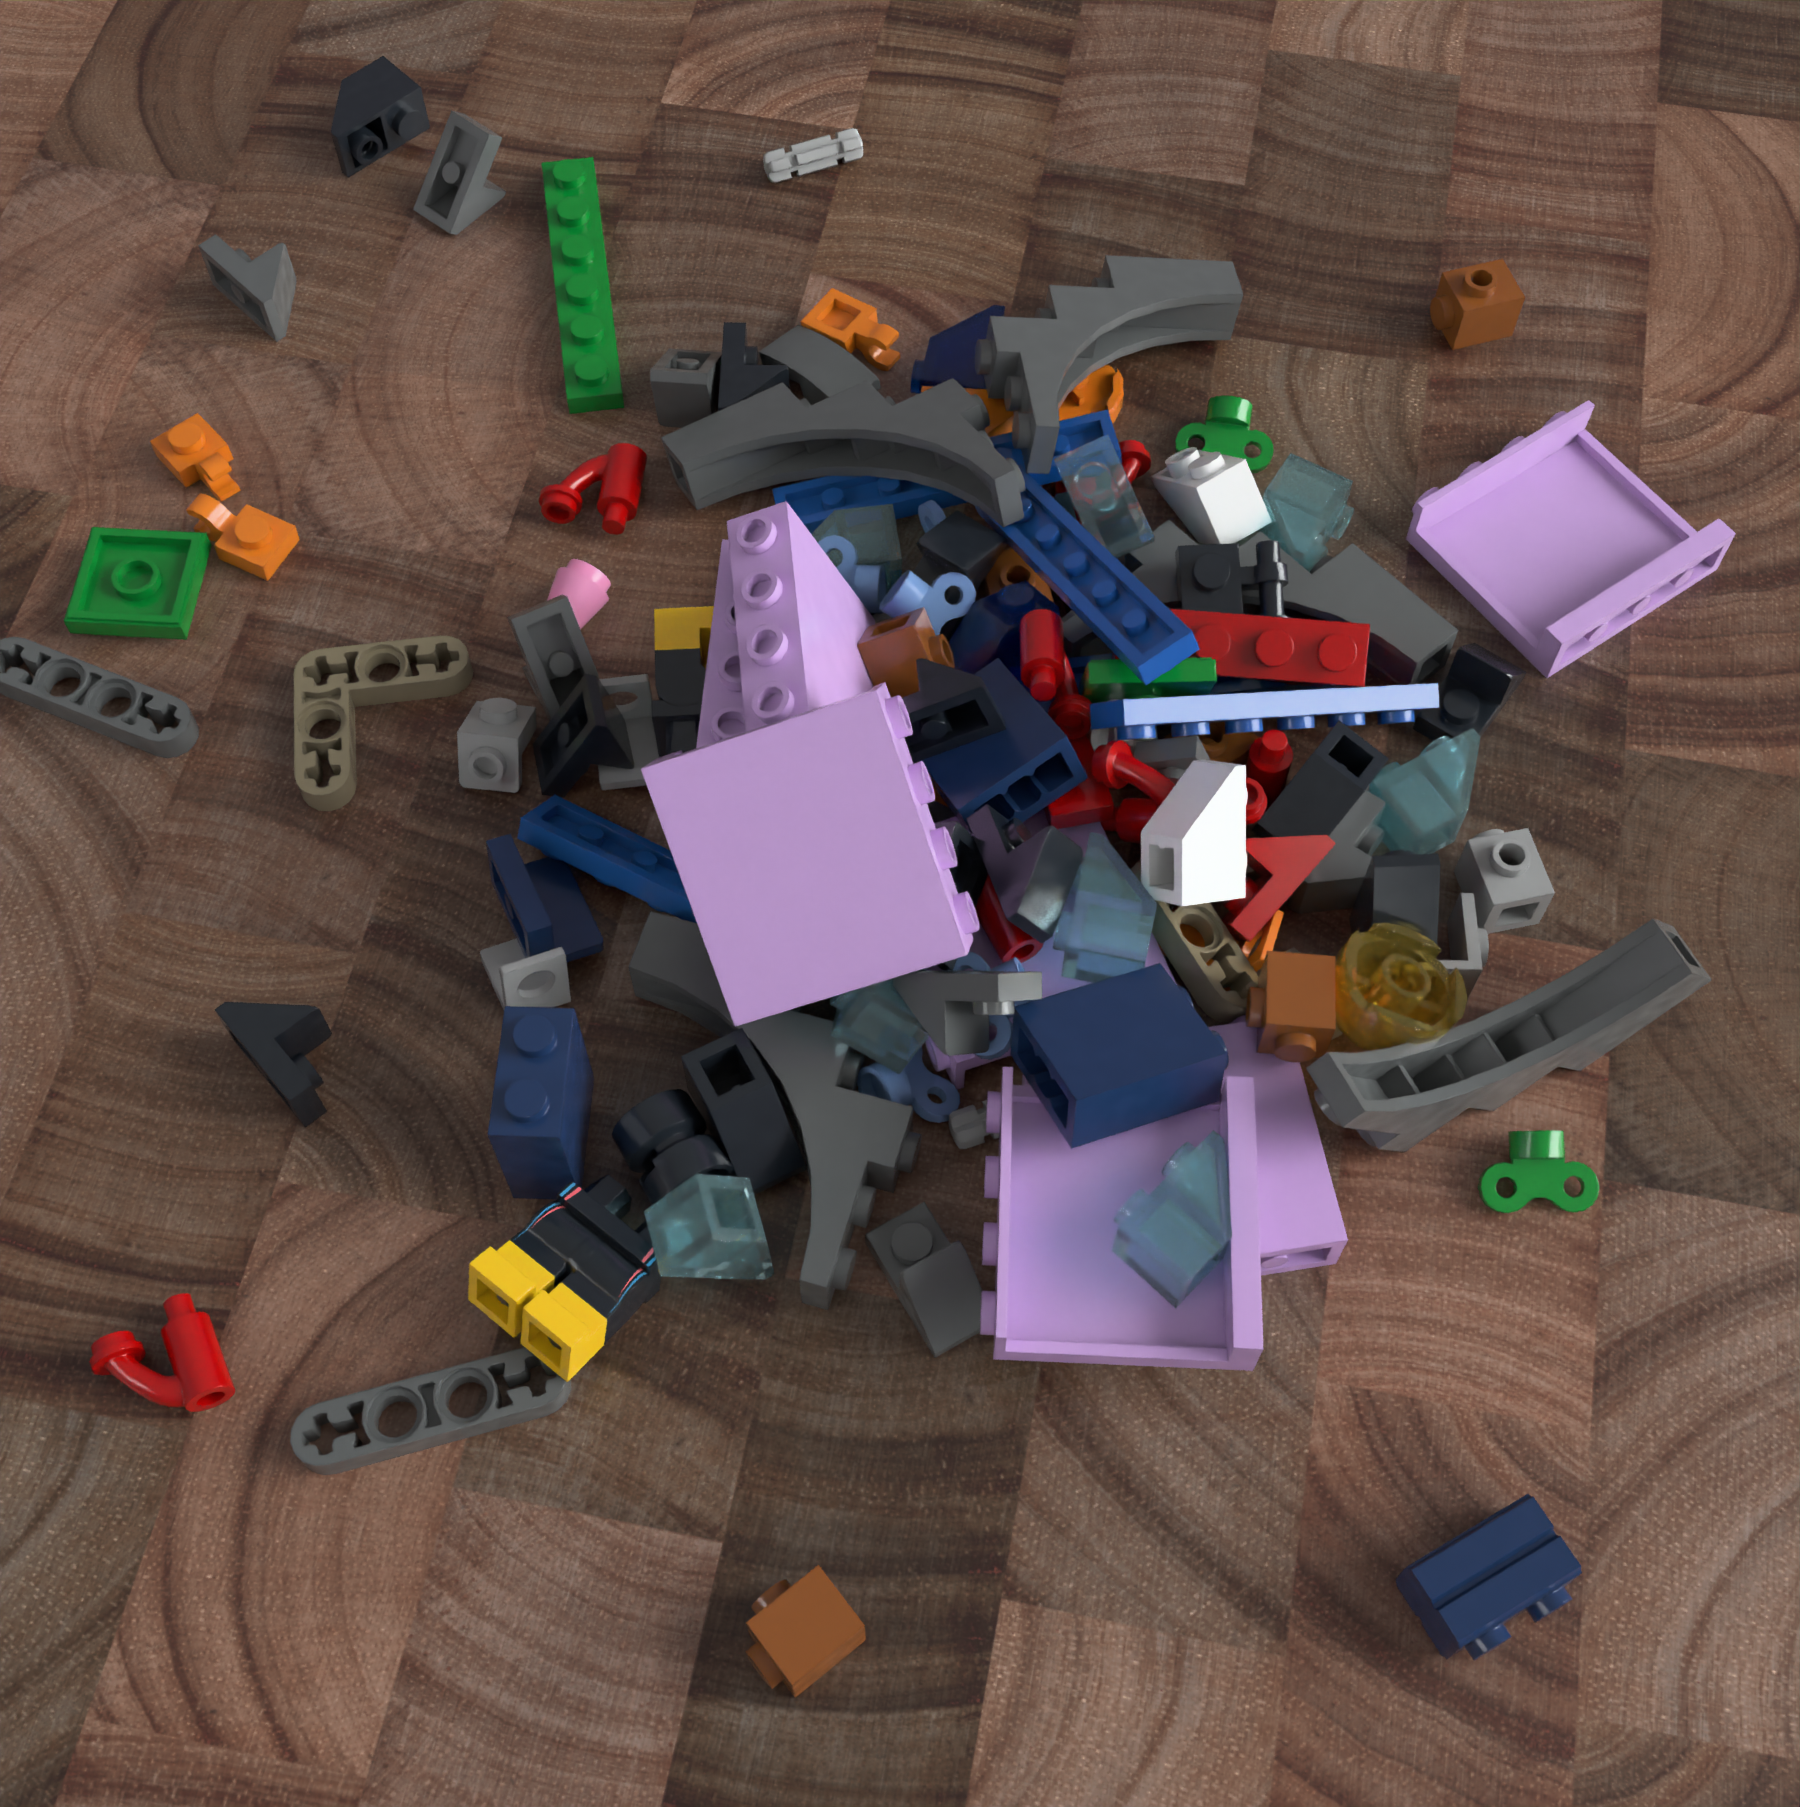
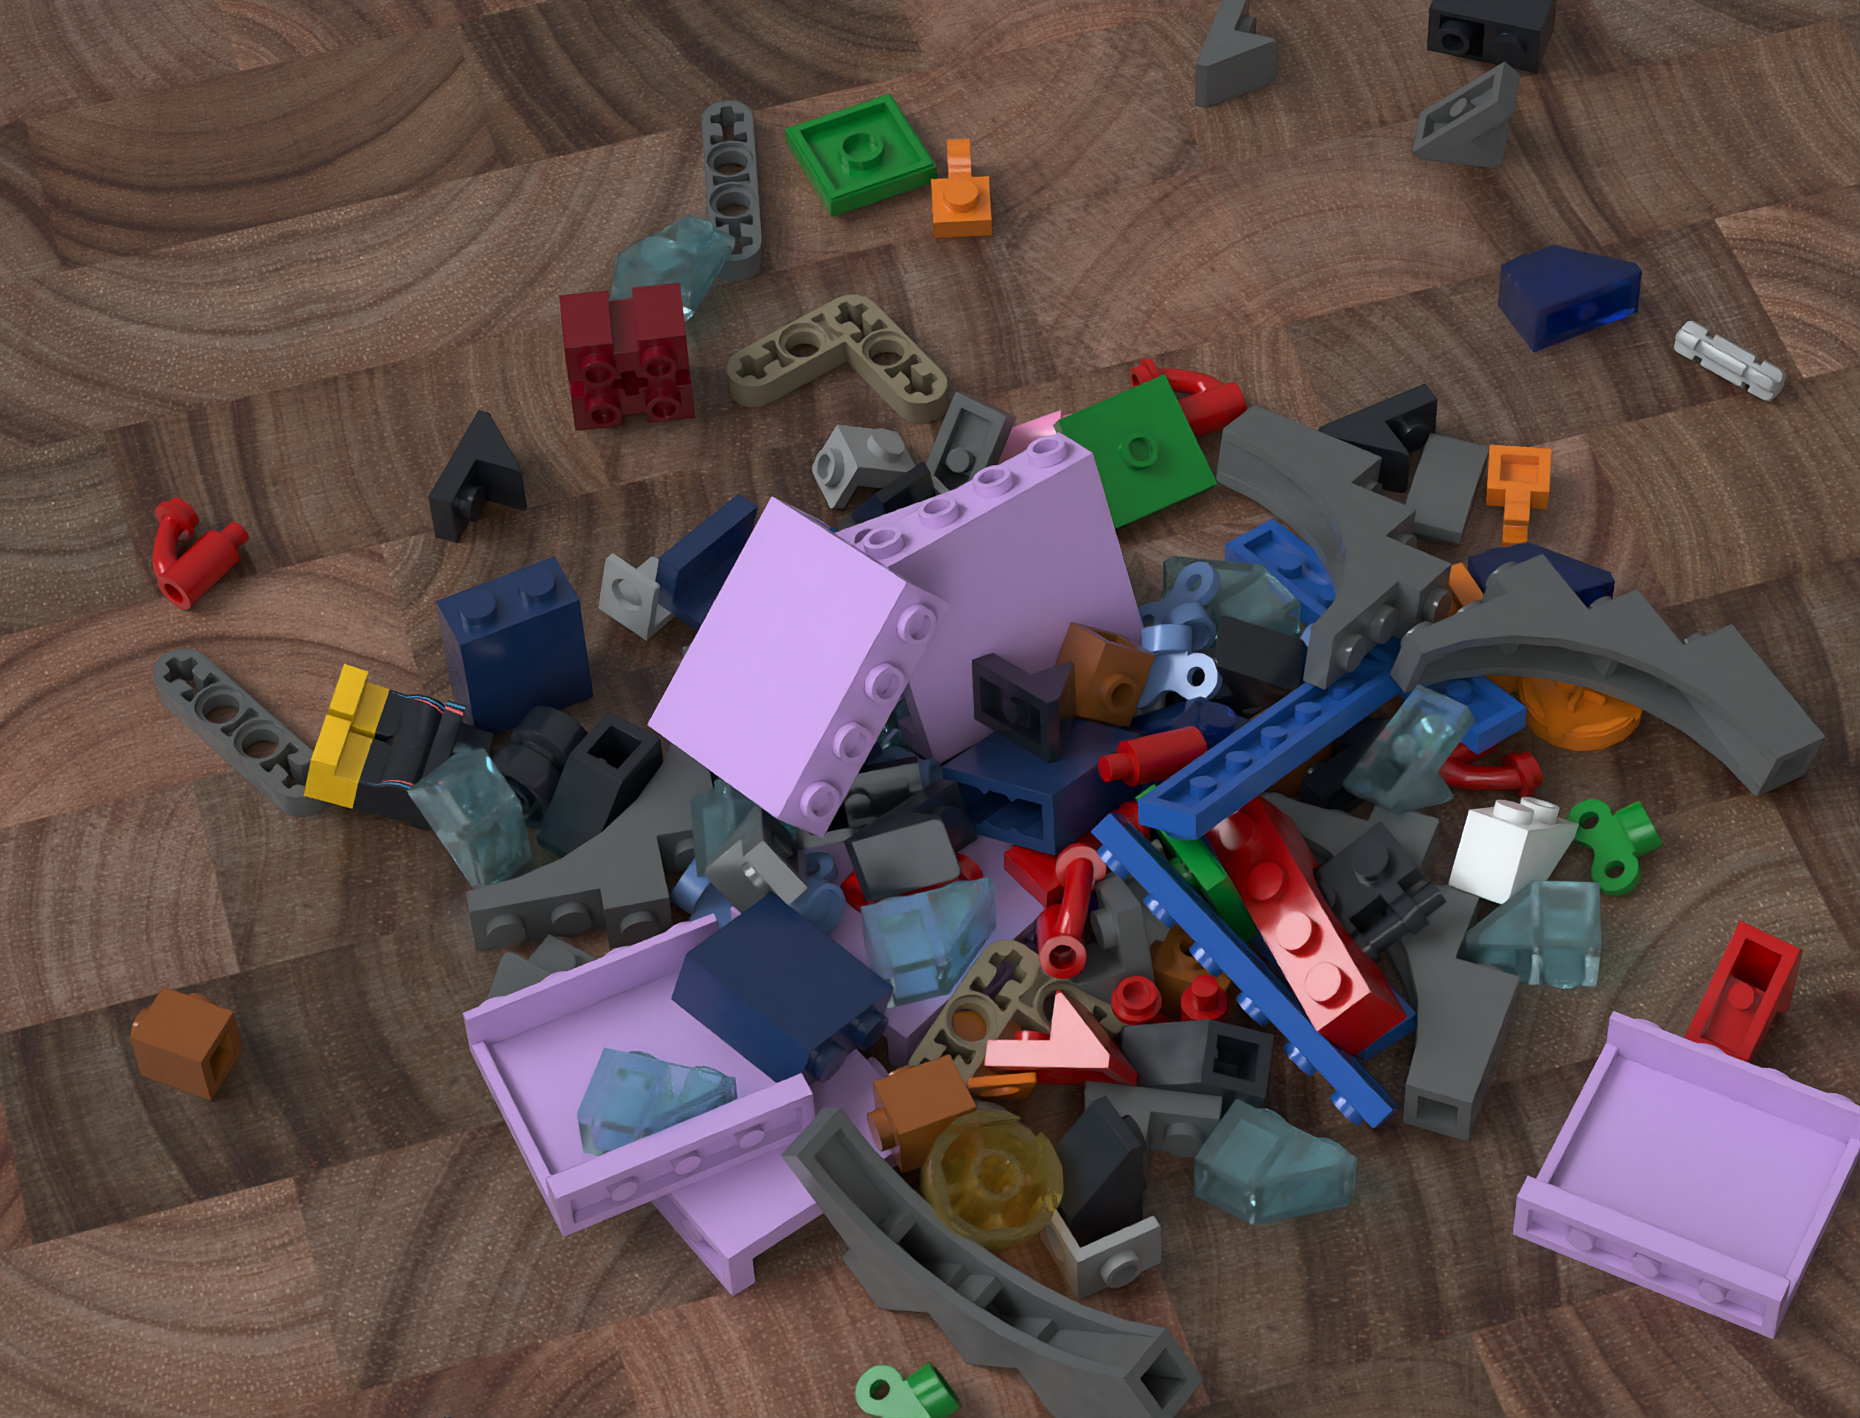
camera: 65 degrees right, 10 degrees down
(163, 785) = (682, 252): none -> clear light blue slope
(195, 453) = (1023, 117): orange plate -> none
(248, 856) = (627, 356): none -> dark red brick
(582, 286) = (1424, 272): green plate -> none
(642, 543) = (1141, 451): none -> green plate
(678, 210) = (1566, 293): none -> clear blue slope
(685, 386) = (1340, 386): dark grey slope -> none
(1198, 837) = (1021, 950): white slope -> none
(1434, 419) = (1746, 992): none -> red slope
(1470, 694) = (1443, 1170): black slope -> none
(1505, 878) = (1211, 1263): light grey brick -> none

